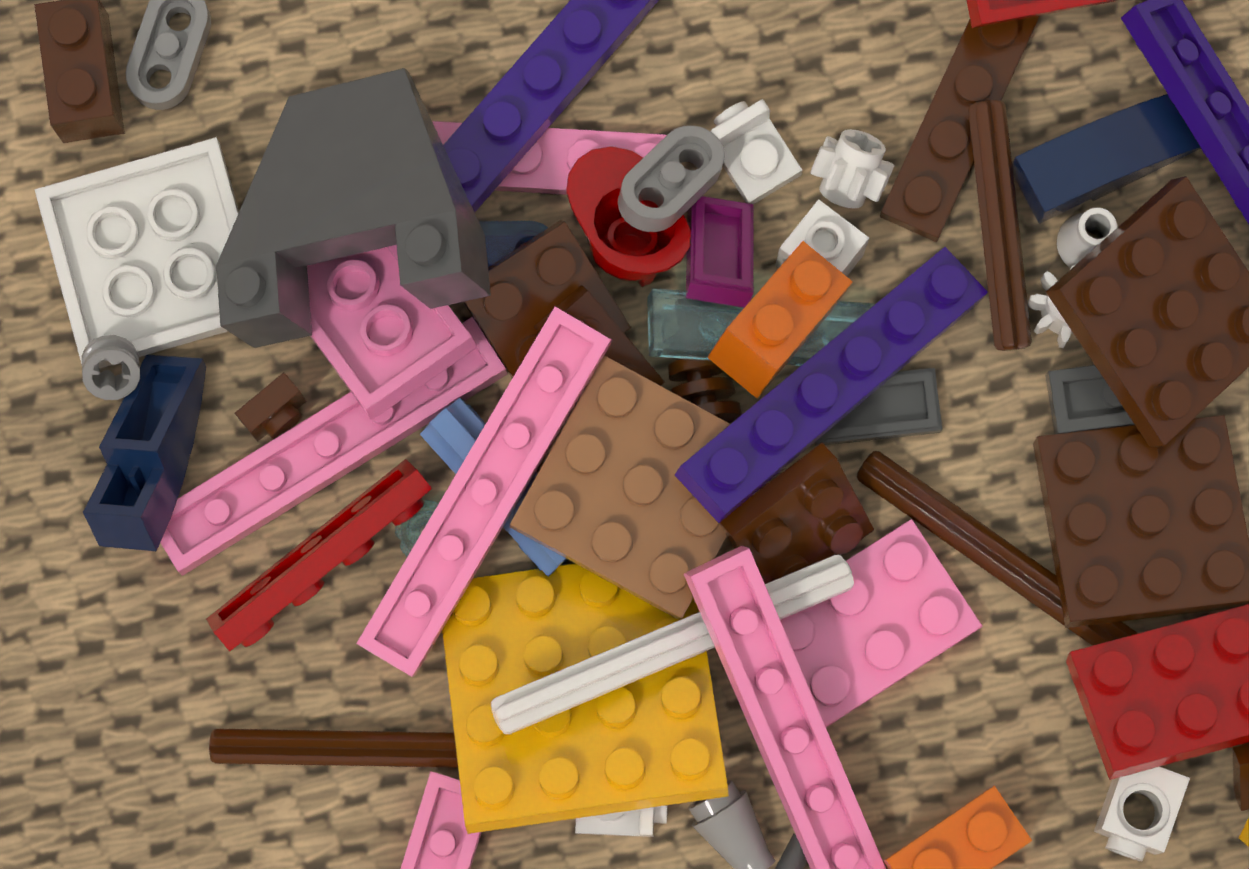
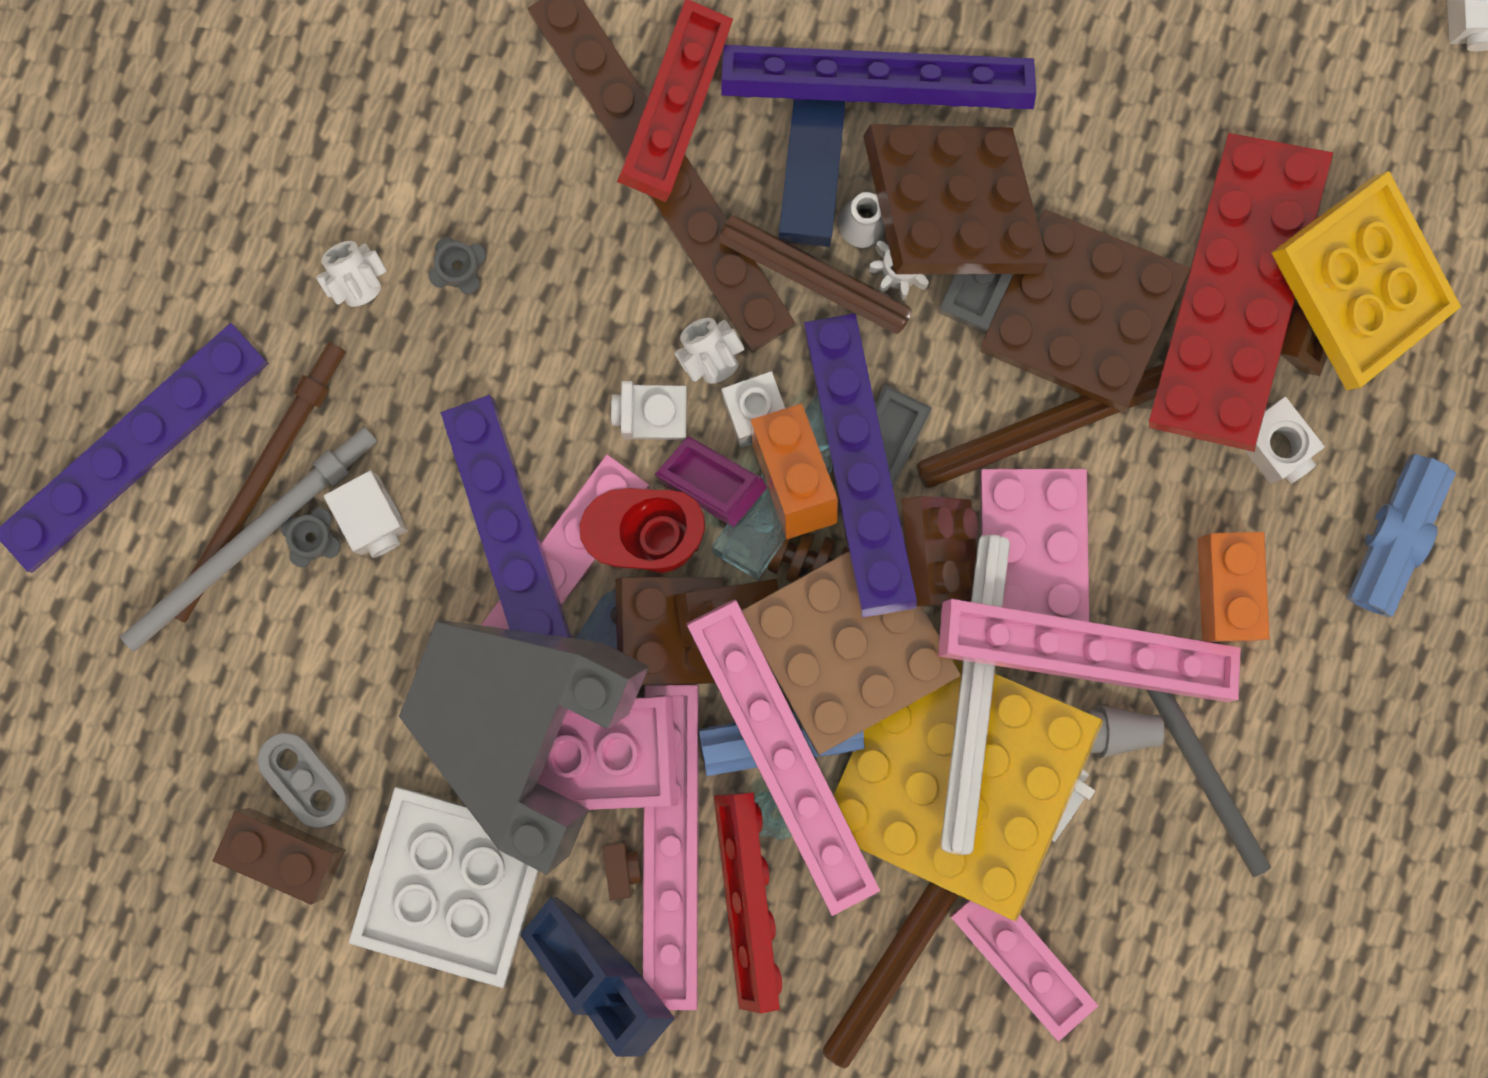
camera: 60 degrees left, 5 degrees up
(106, 384) = (509, 958): light grey bush -> none
(666, 181) = (640, 485): light grey plate -> none

